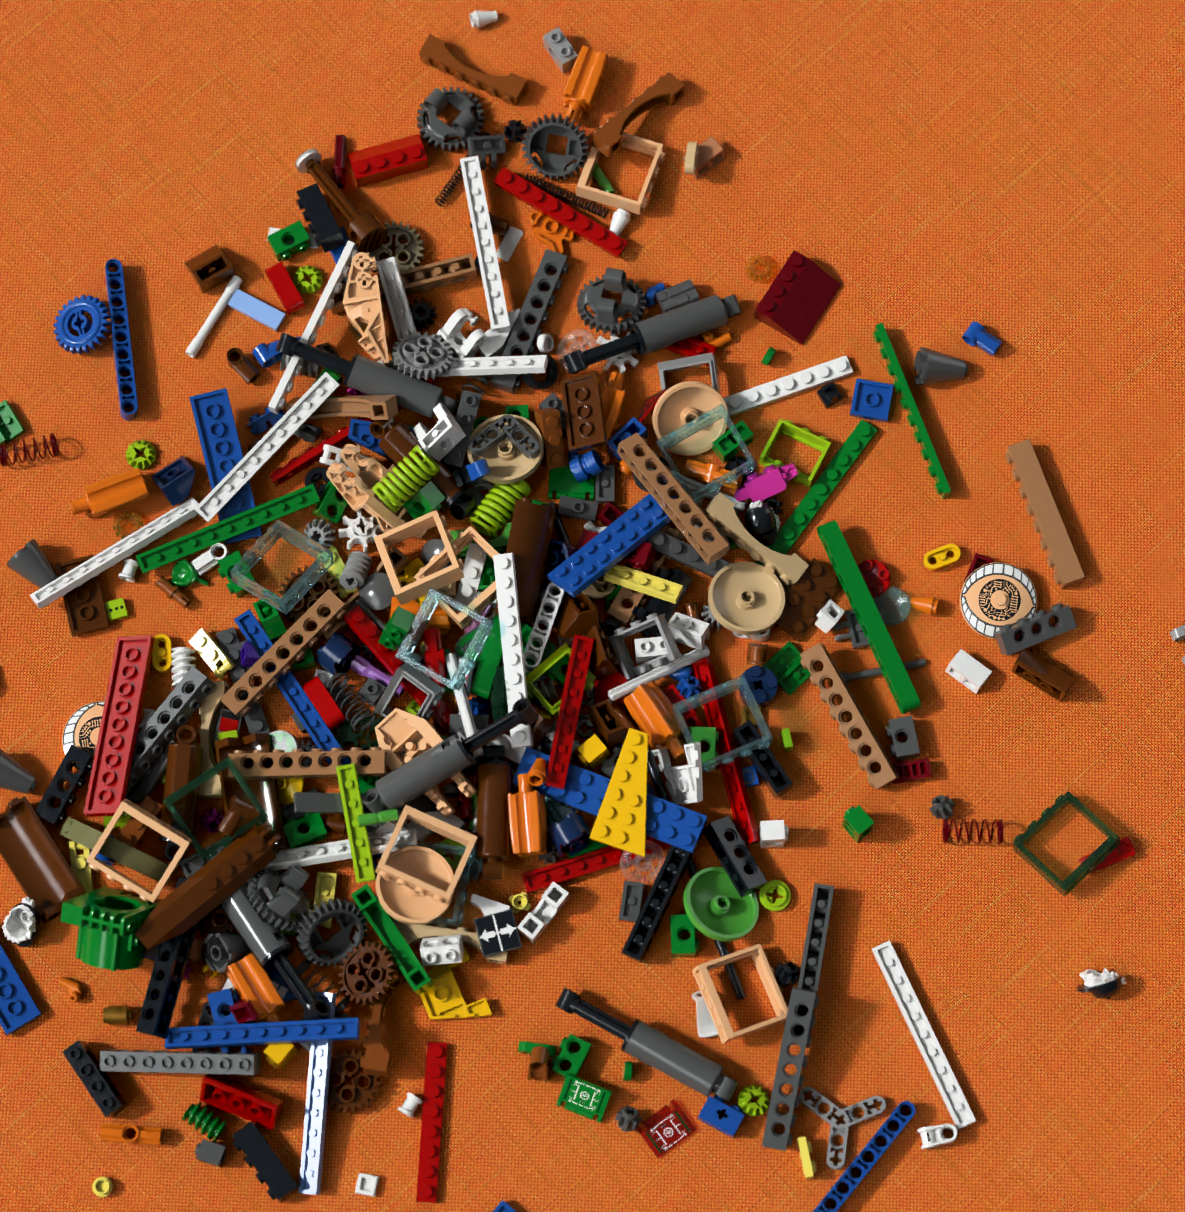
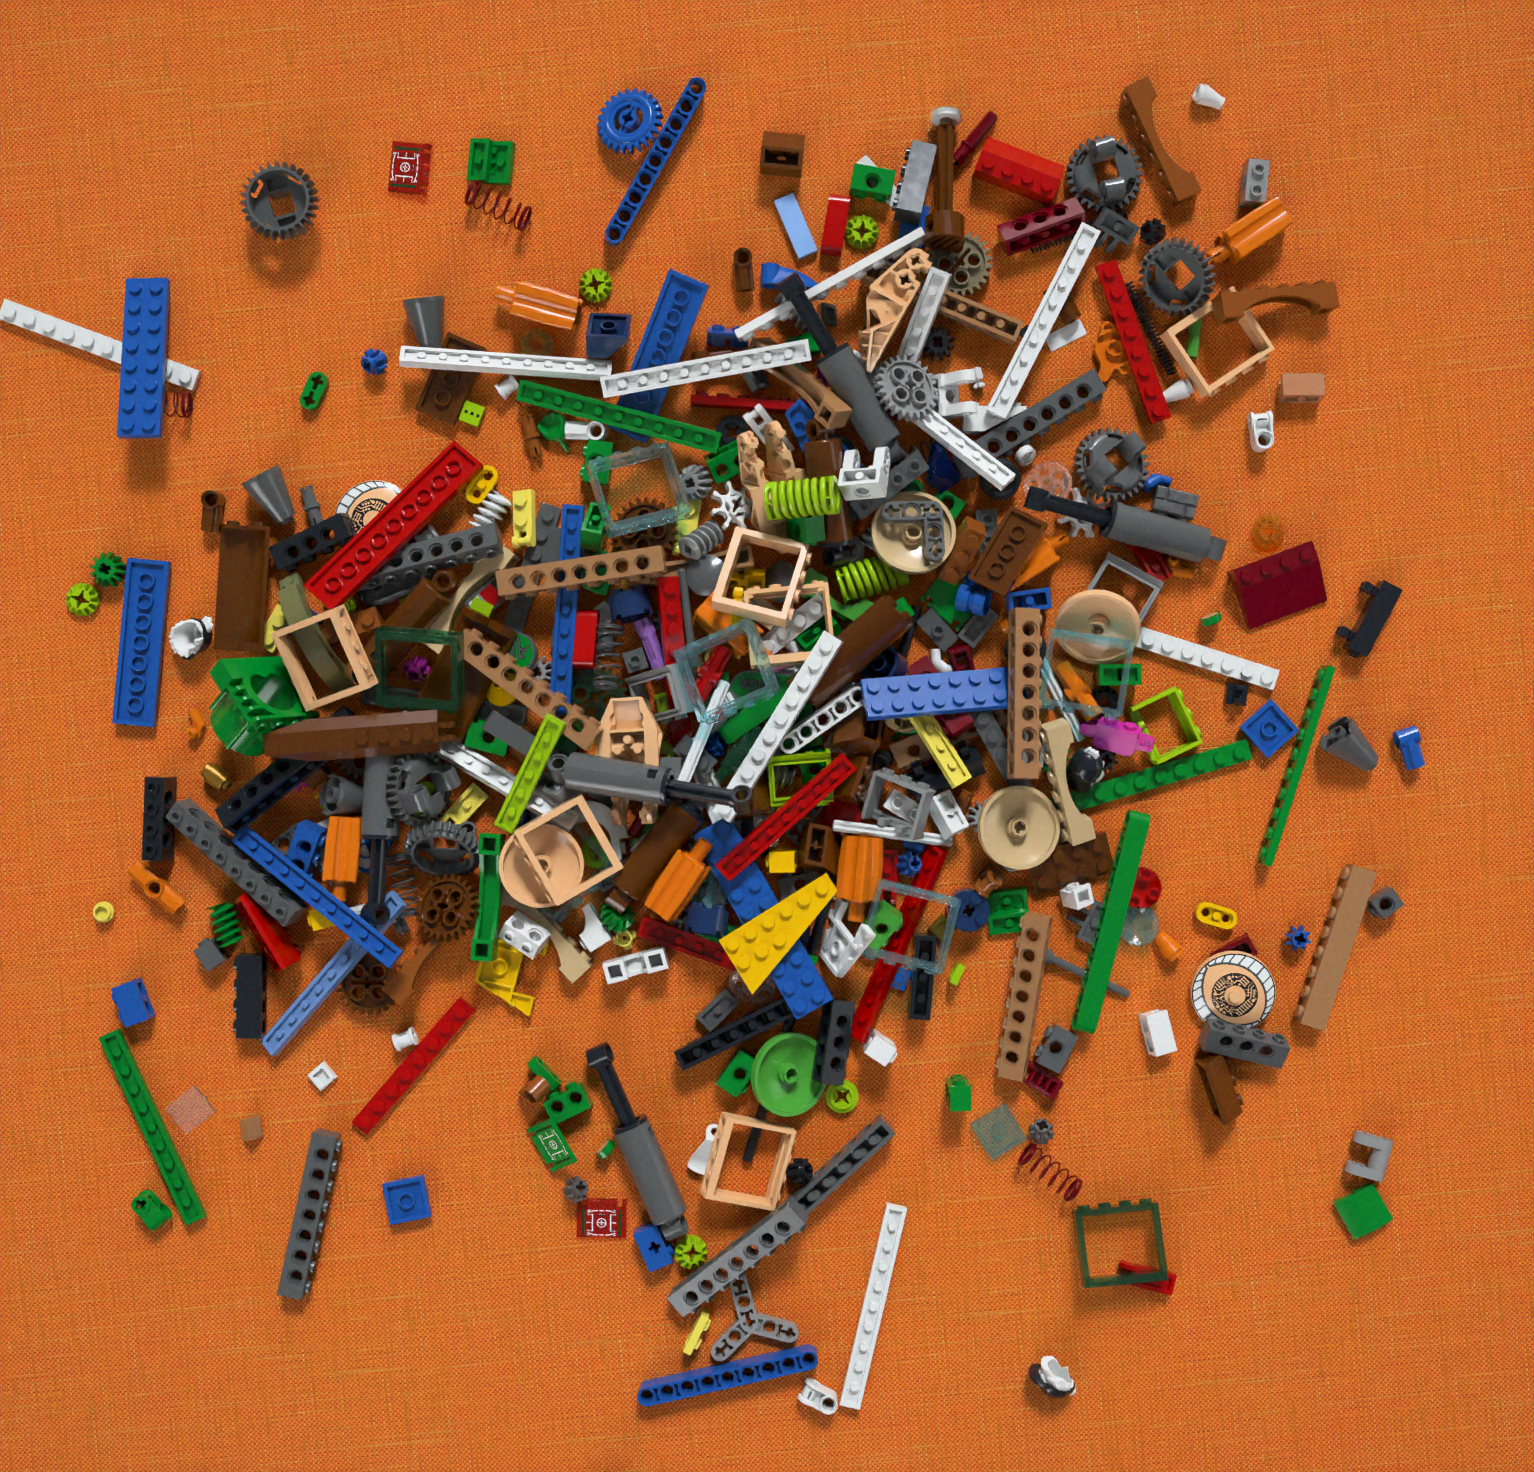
camera: 35 degrees right, 15 degrees up
(16, 624) = (374, 361): none -> blue gear
(42, 761) = (311, 506): none -> dark grey pin
(197, 342) = (722, 216): white piece -> none
(237, 811) = (431, 690): reddish brown piece -> none
(244, 1011) = (315, 863): dark red slope -> none
(248, 655) = (552, 547): dark purple slope -> none
(380, 817) = (548, 785): bright green piece -> none
(396, 628) = (693, 626): green brick -> none
(433, 184) = (1041, 226): none -> dark red brick
(471, 473) = (865, 534): leg -> none
(493, 394) = (941, 471): none -> clear blue slope
(497, 933) = (582, 955): black tile -> none
(502, 888) = (616, 920): none -> green gear
(537, 773) = (717, 850): orange cone -> none
(649, 404) = (1073, 585): piece -> none
(691, 157) = (1290, 382): tan beam -> none
(696, 203) = (1260, 426): none -> white piece
(882, 273) = (1372, 618): none -> black brick
(912, 833) = (998, 1131): none -> clear light blue plate
(1010, 533) = (1297, 943): none -> blue gear
(1053, 450) = (1393, 902): none -> dark grey brick

